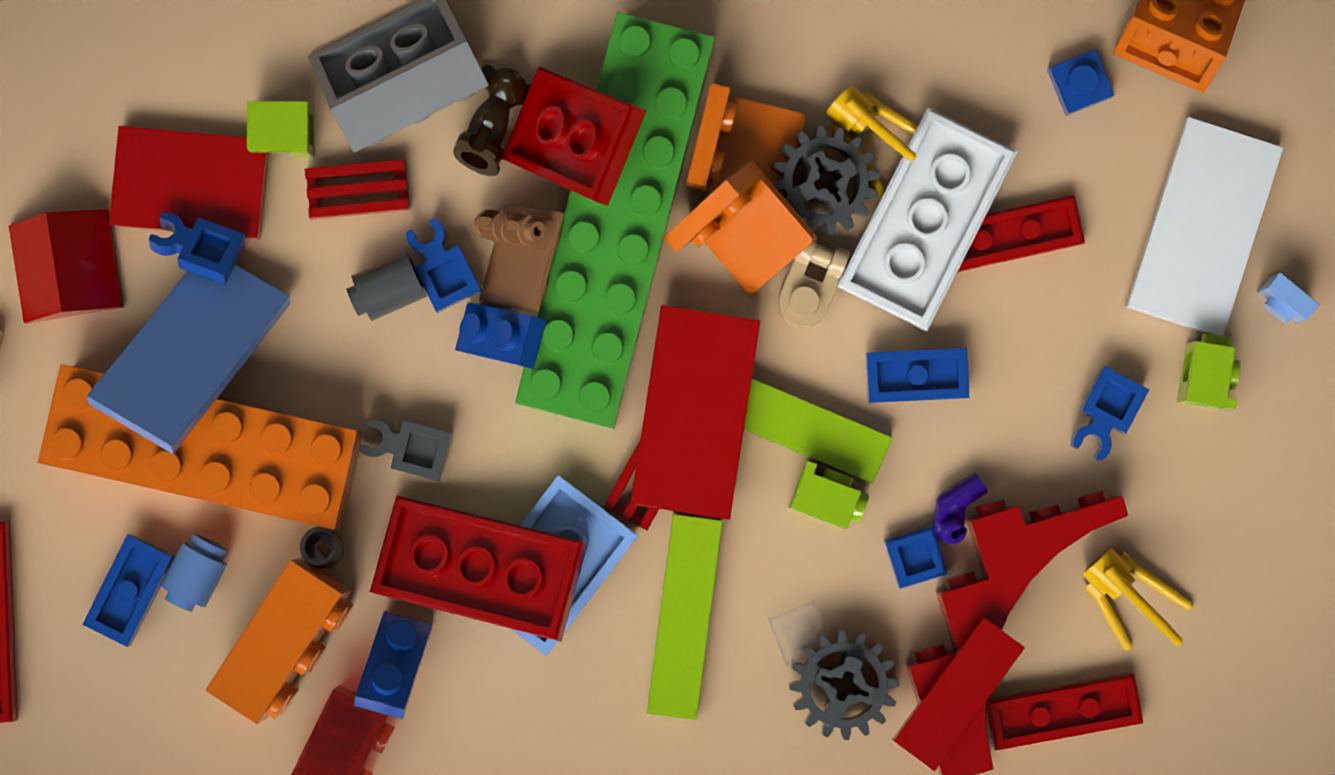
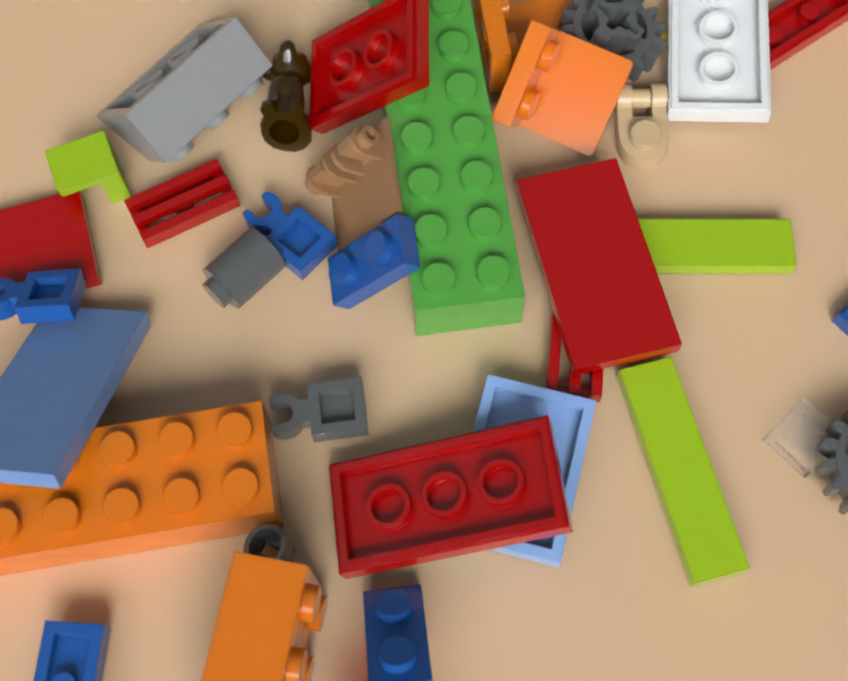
camera: 25 degrees left, 20 degrees down
(194, 572) = (136, 633): medium blue brick -> none
(828, 497) = (761, 293): lime brick -> none
(917, 375) = (781, 158): blue plate -> none

